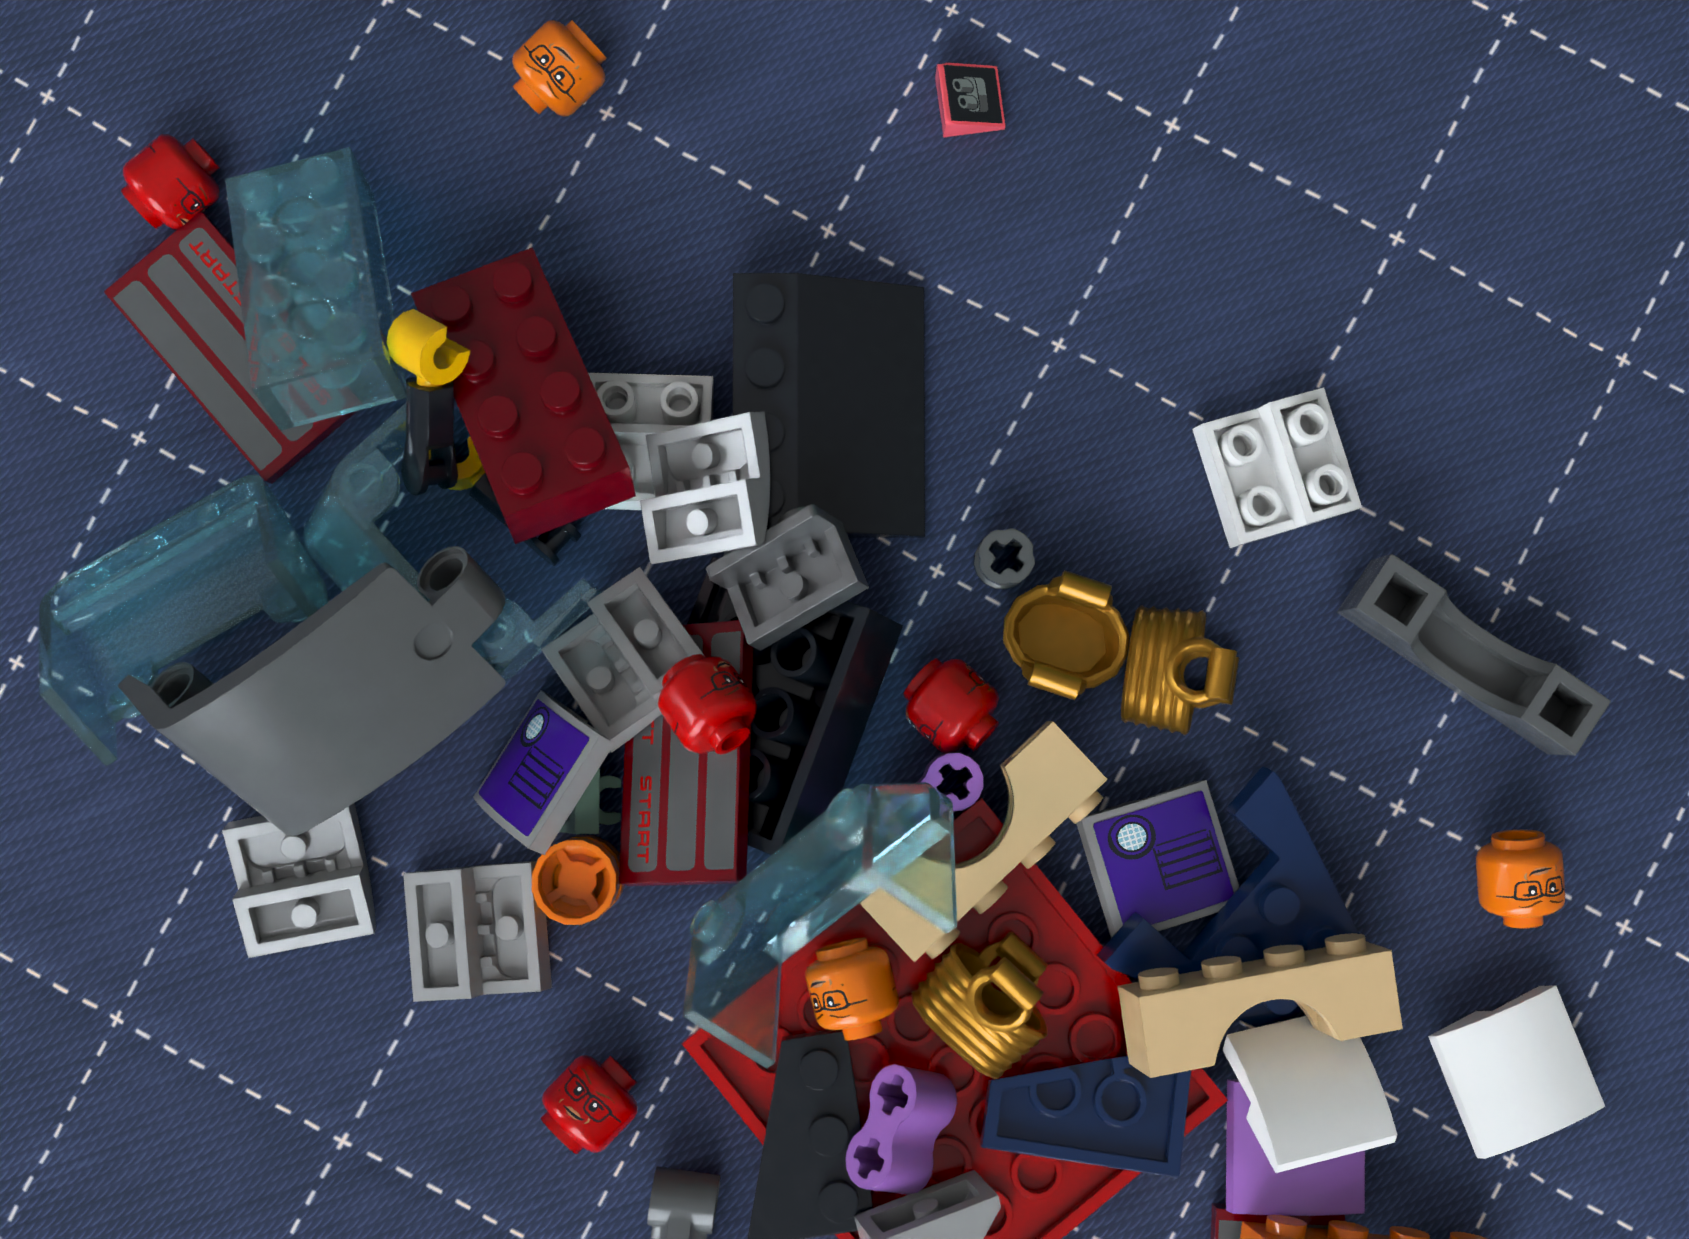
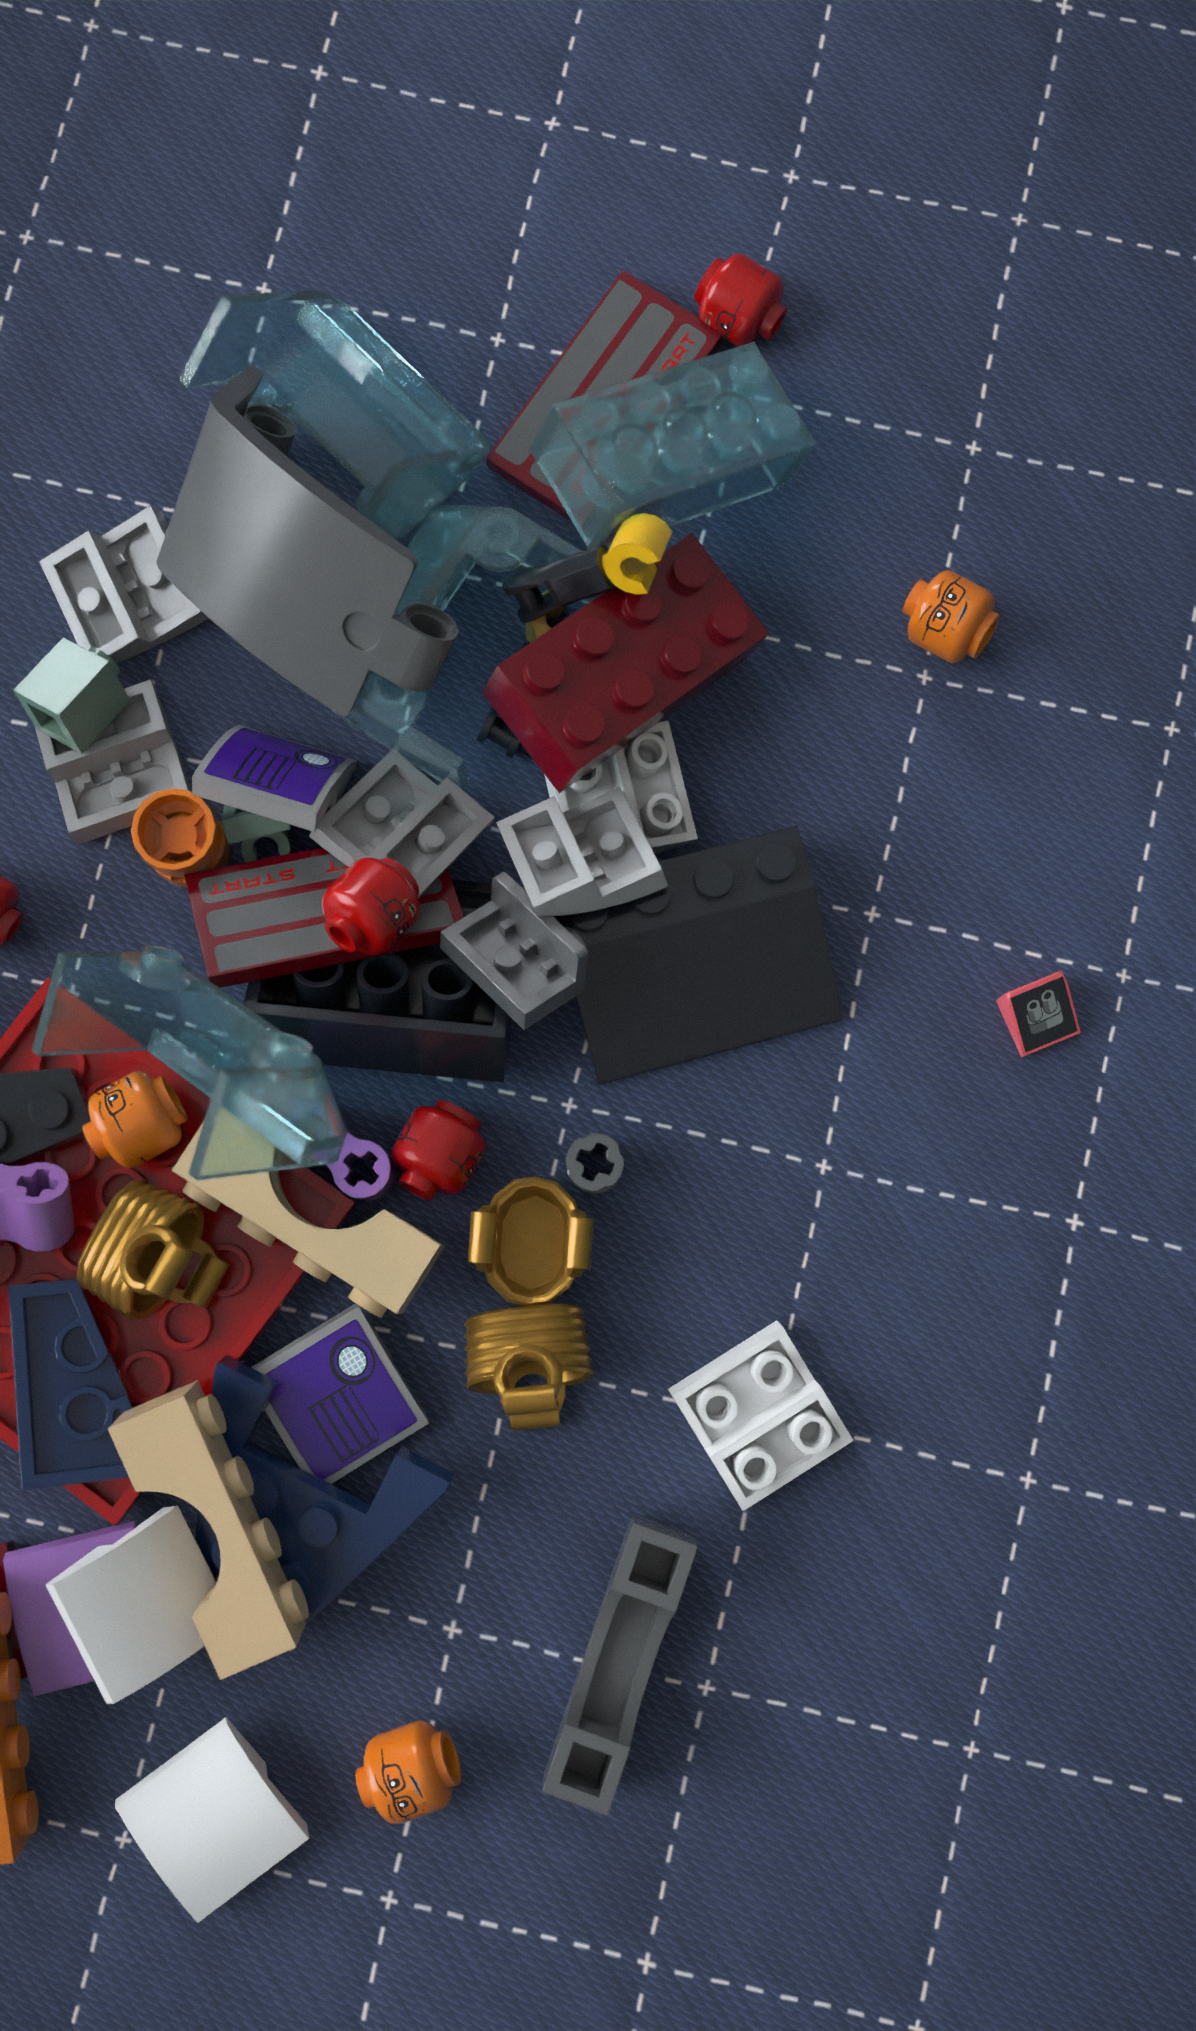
camera: 75 degrees right, 5 degrees down
(402, 952) = (73, 694): none -> sand green brick

